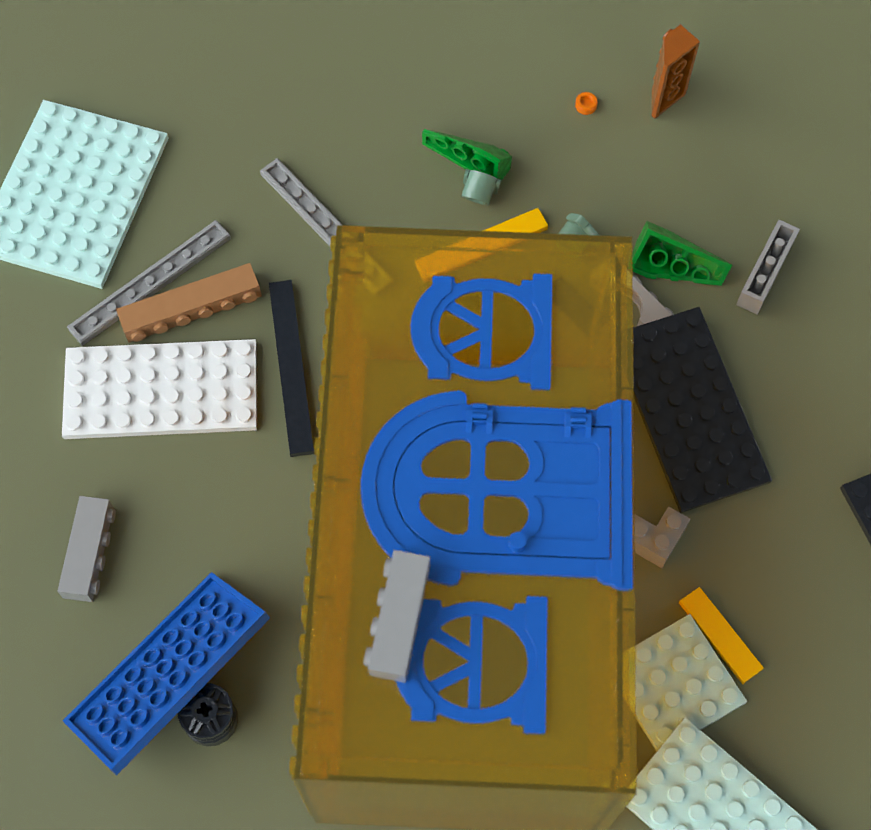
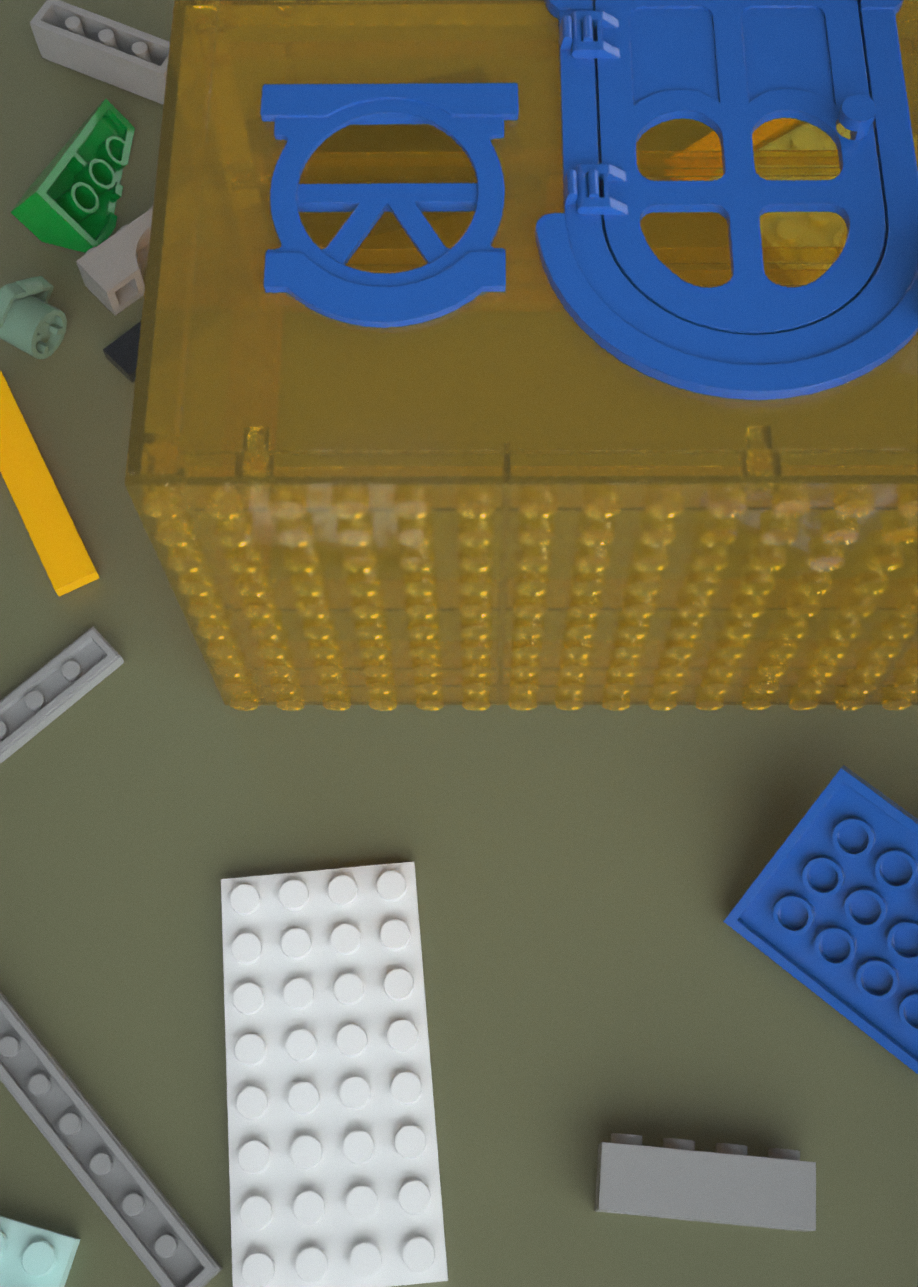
camera: 90 degrees left, 0 degrees up
(189, 303) = (133, 1029): medium nougat brick -> none
(291, 369) = (277, 807): black tile -> none

